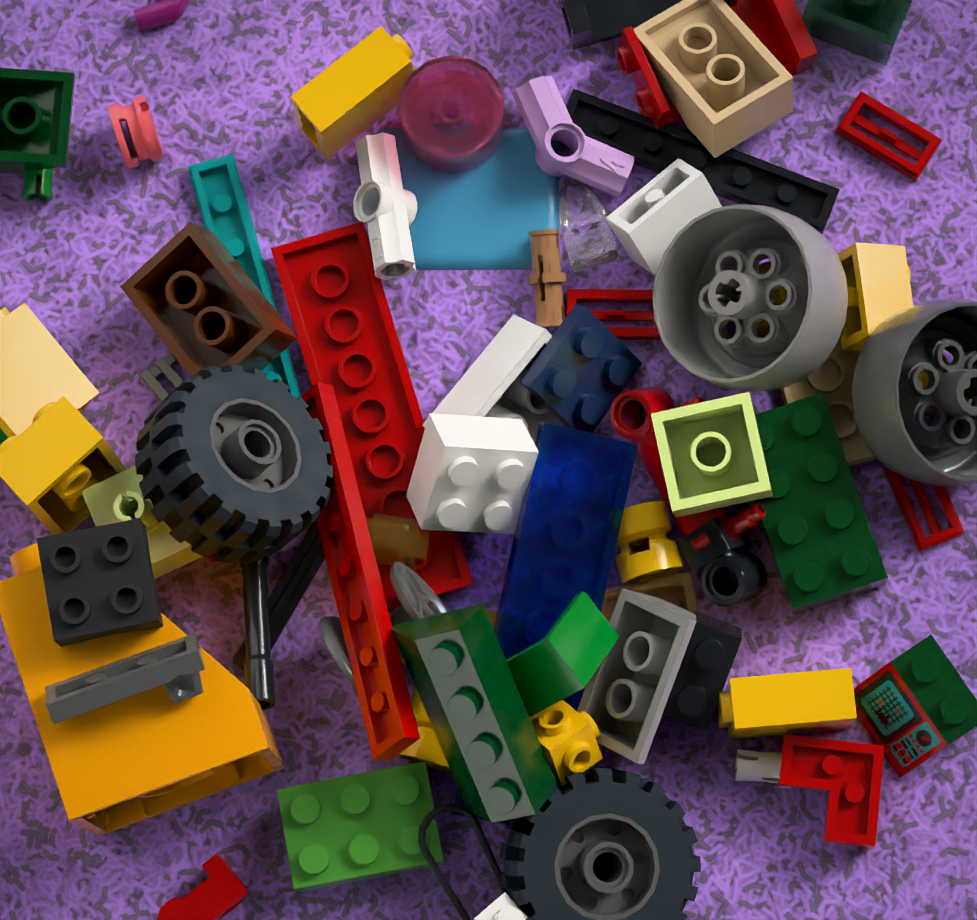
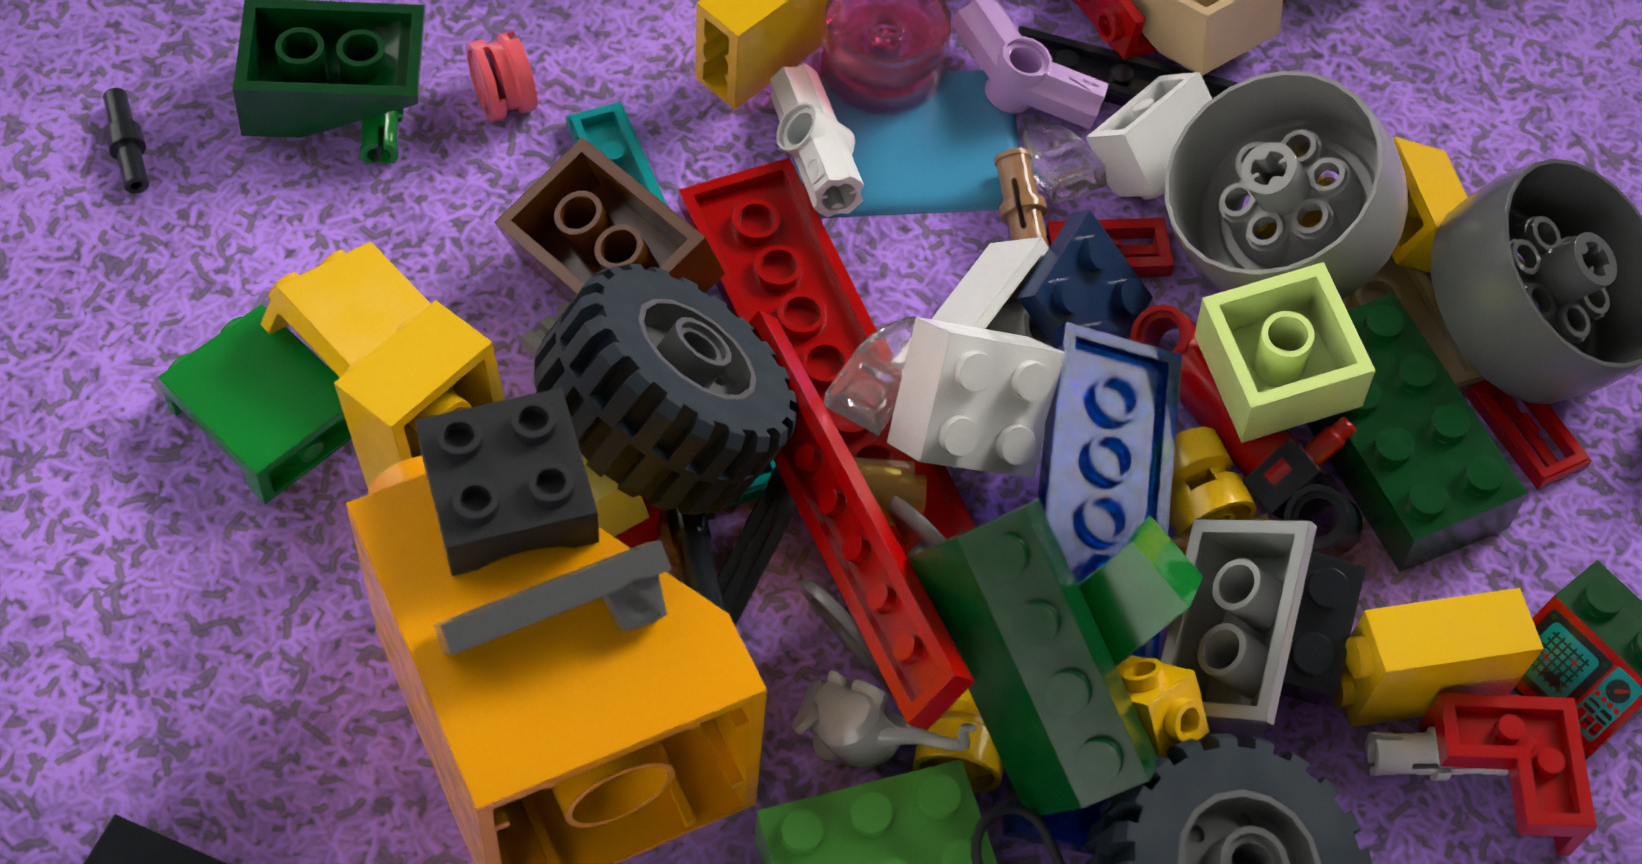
camera: 15 degrees left, 20 degrees down
(346, 719) = (857, 727): none -> light grey animal
(399, 440) = (872, 377): none -> clear plate
(877, 150) = (1386, 67): red tile -> none

